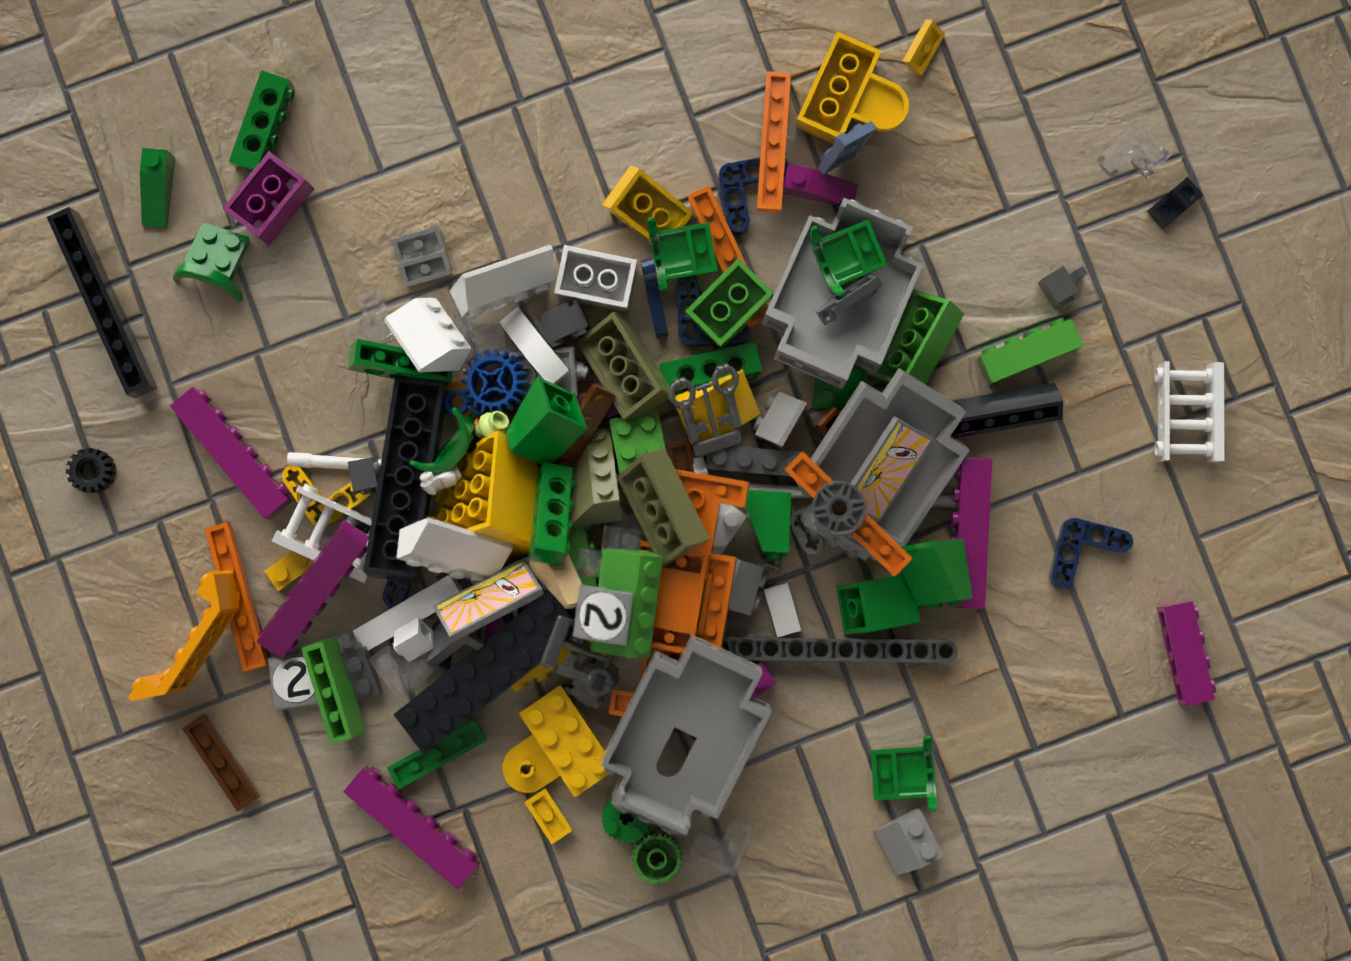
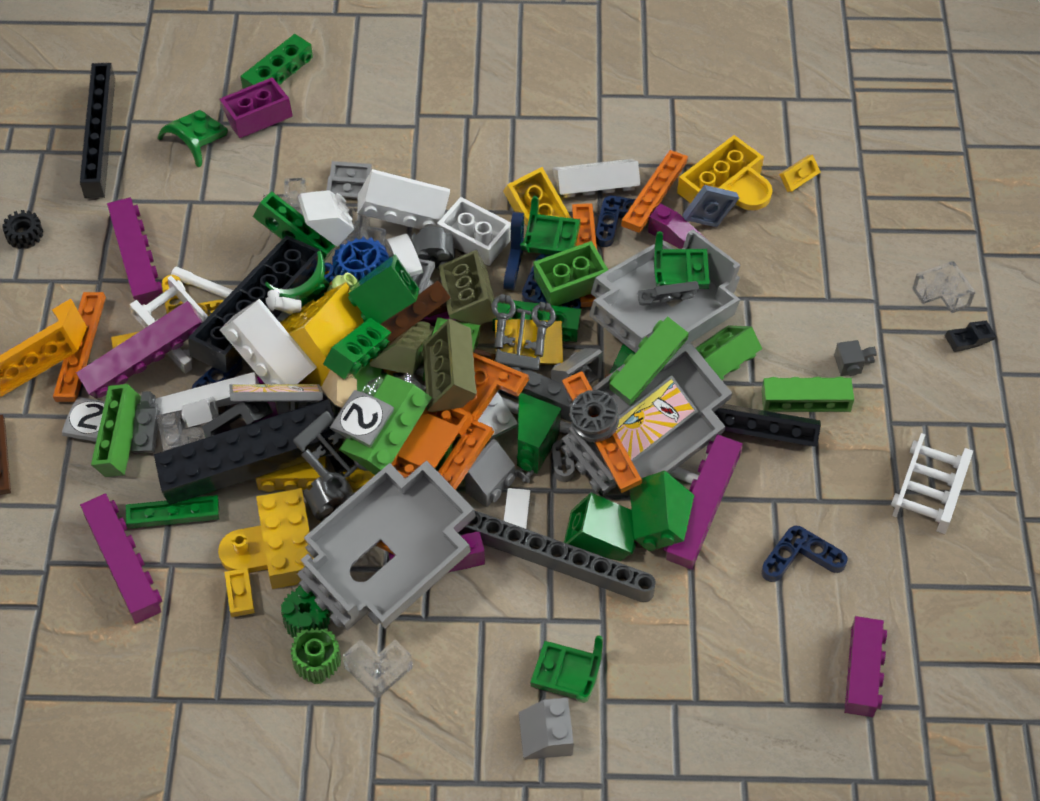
camera: 20 degrees right, 30 degrees down
(156, 186) = (180, 77): green slope -> none
(364, 474) = (223, 287): dark grey brick -> none
(698, 142) = (597, 176): none -> white slope
(869, 416) = (648, 360): none -> bright green brick

